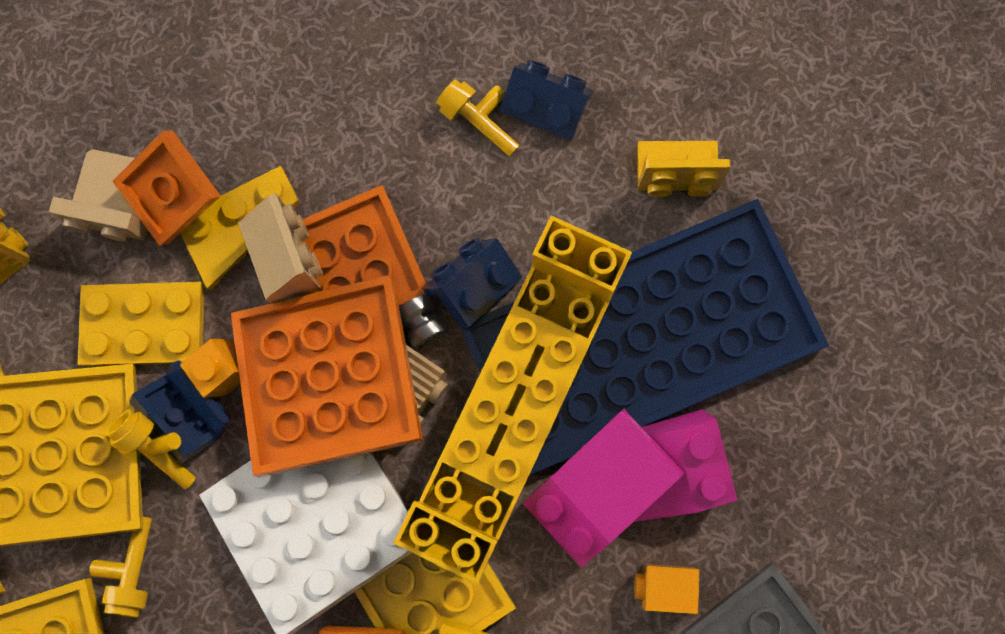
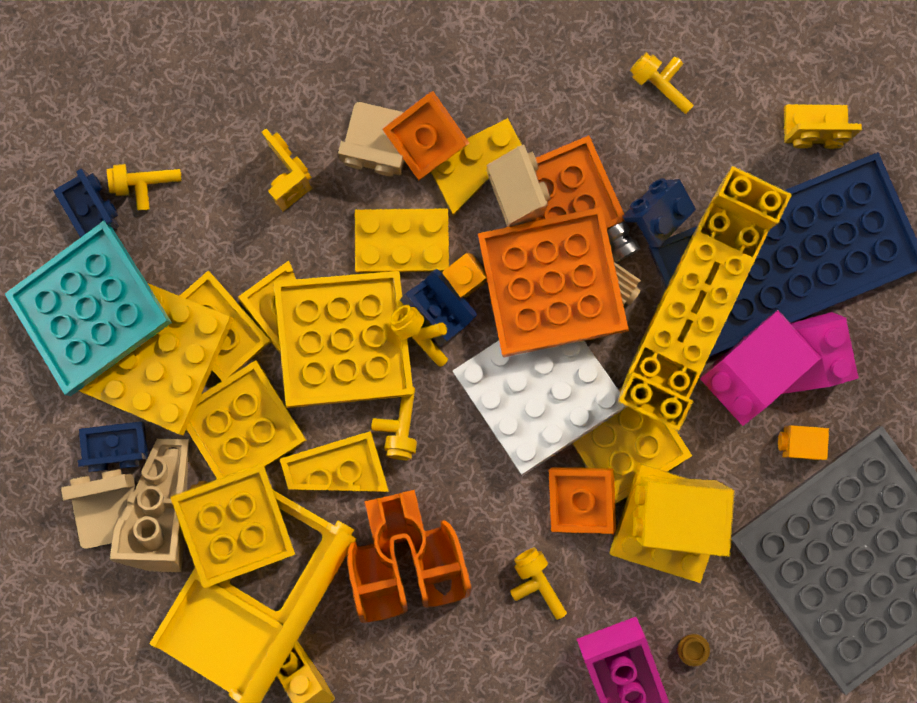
camera: 10 degrees left, 5 degrees up
(546, 99) = (715, 69): dark blue bracket -> none

